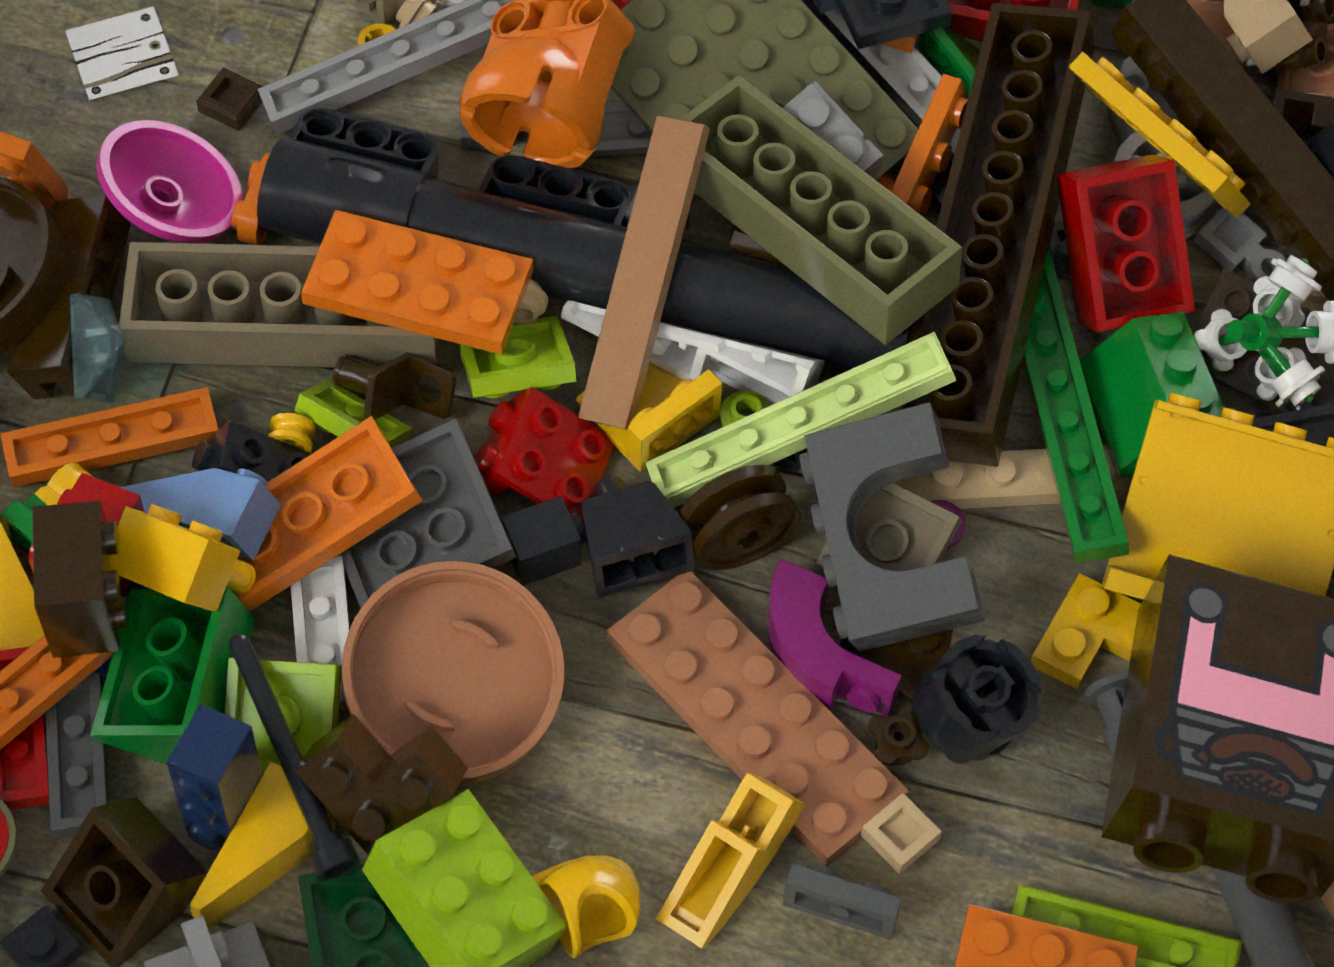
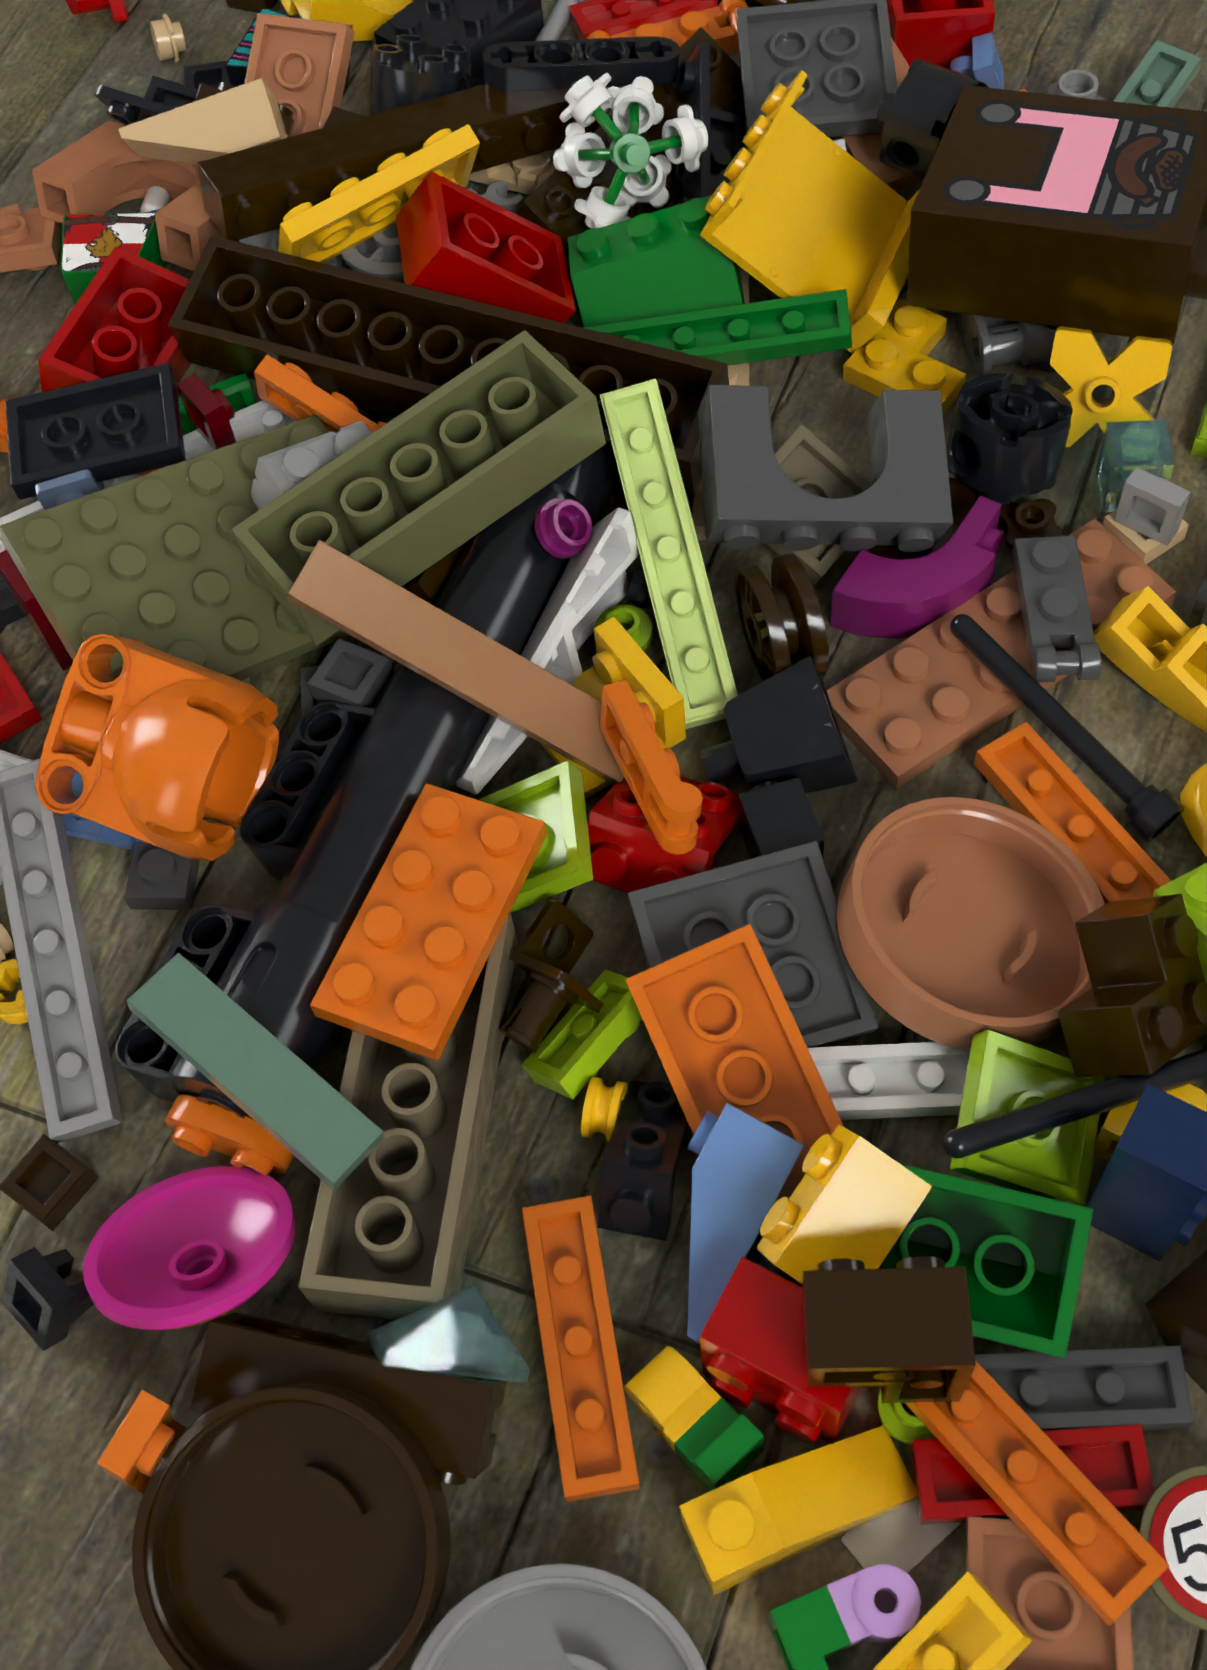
camera: 75 degrees left, 0 degrees up
(146, 104) = (41, 1297): none -> black tile
(276, 181) = (256, 1071): none -> sand green tile
(560, 412) = (650, 769): none -> orange plate
(569, 763) = (1049, 793): none -> orange plate
(585, 825) = (1146, 806): none -> black piece
(780, 741) = (1055, 608): none -> dark grey plate
(791, 340) = (563, 527): none -> magenta plate
(901, 817) = (1152, 505): none -> light grey plate
(929, 60) = (207, 411): none -> dark red plate
(969, 820) = (1127, 447): none -> clear light blue brick
(1050, 785) = (1129, 373): none -> yellow plant

